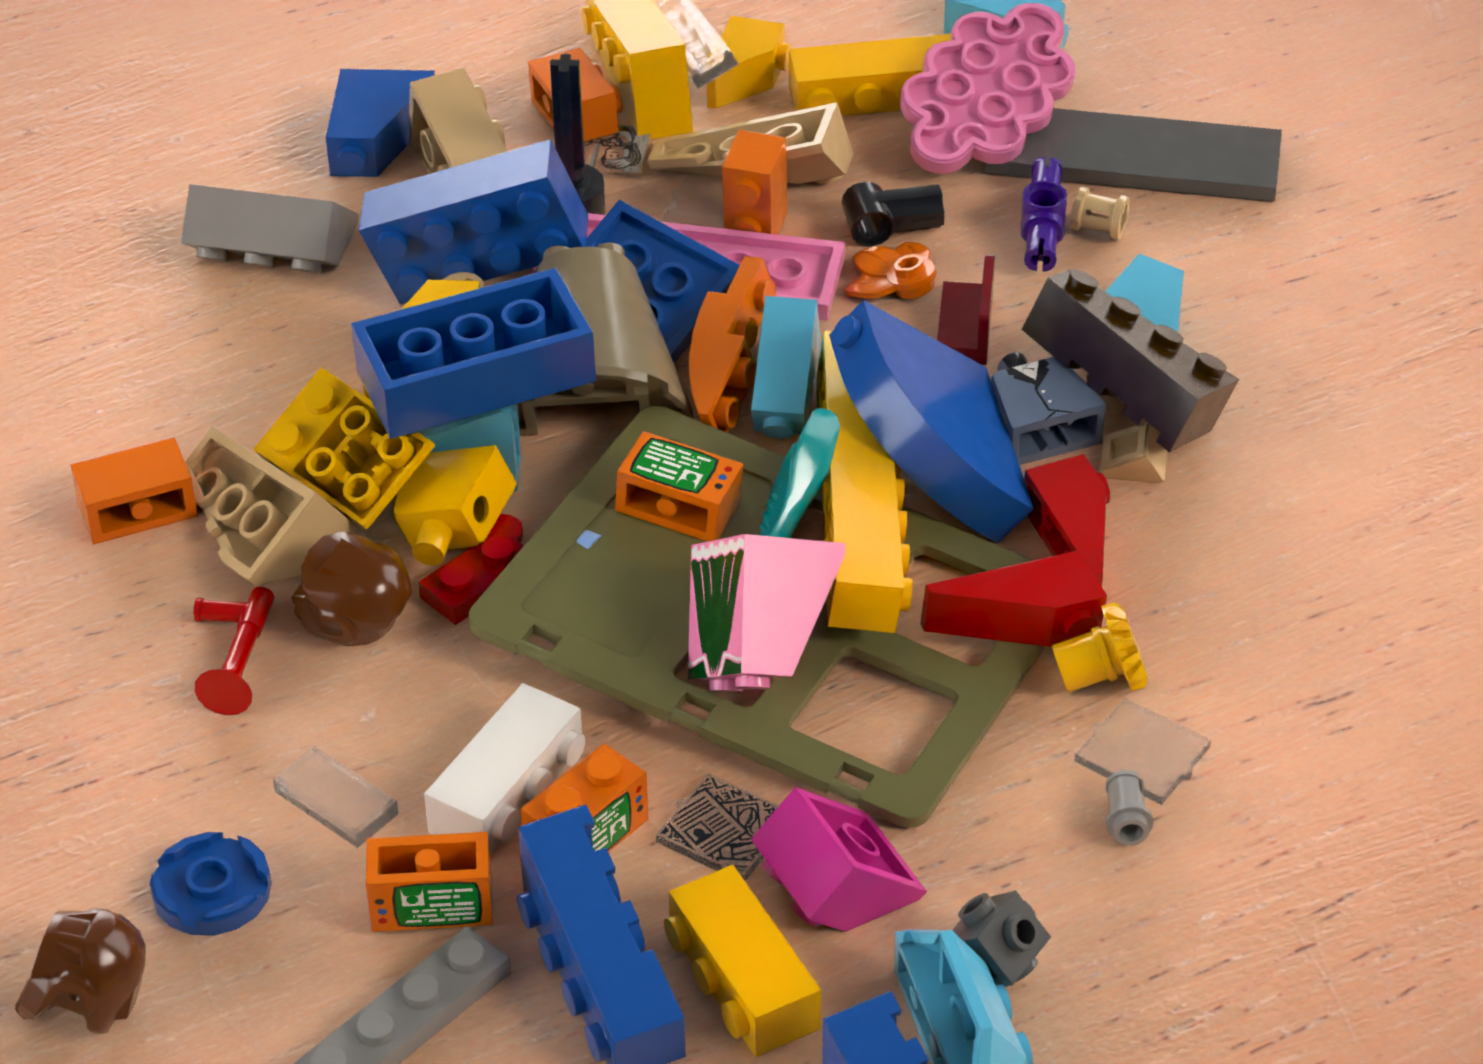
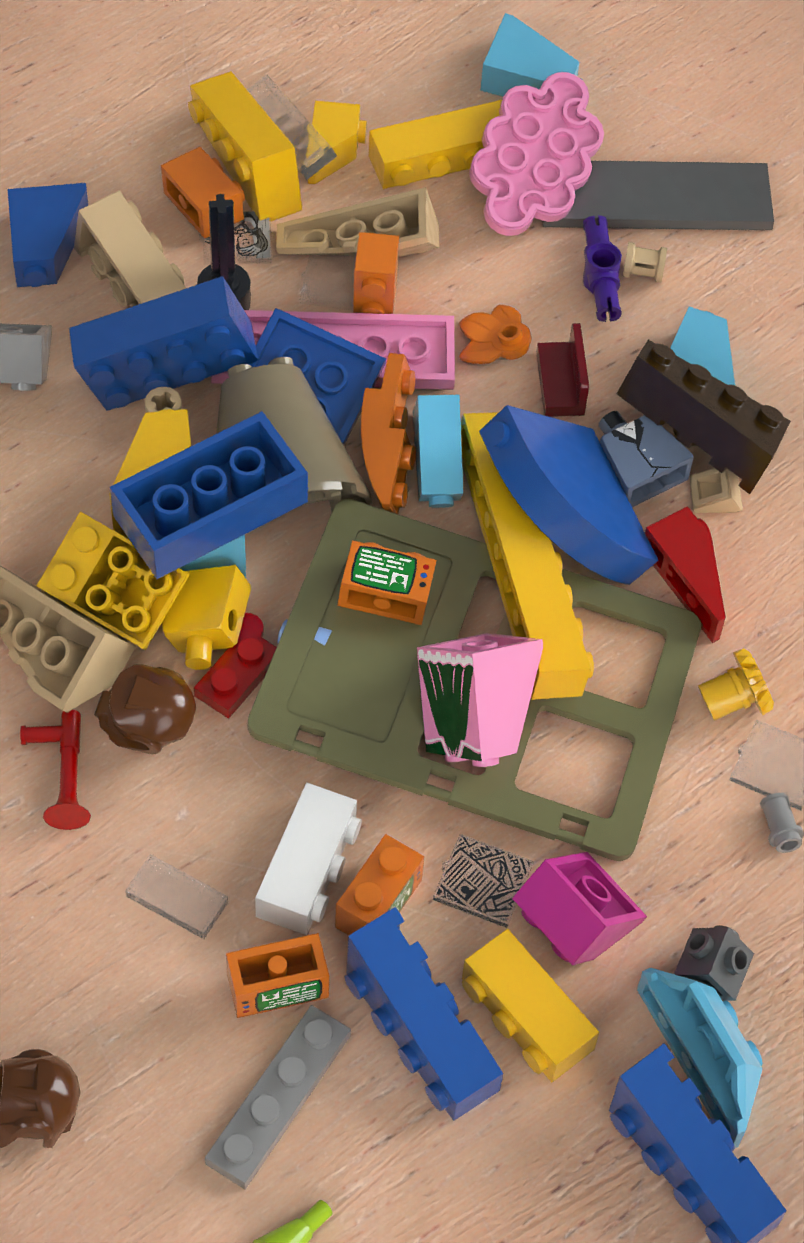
camera: 15 degrees left, 15 degrees up
(210, 884) = (99, 992): blue tile -> none
(801, 474) = (477, 567): teal animal -> none
(879, 213) = (472, 281): black piece -> none
(1018, 603) = (670, 652): red slope -> none

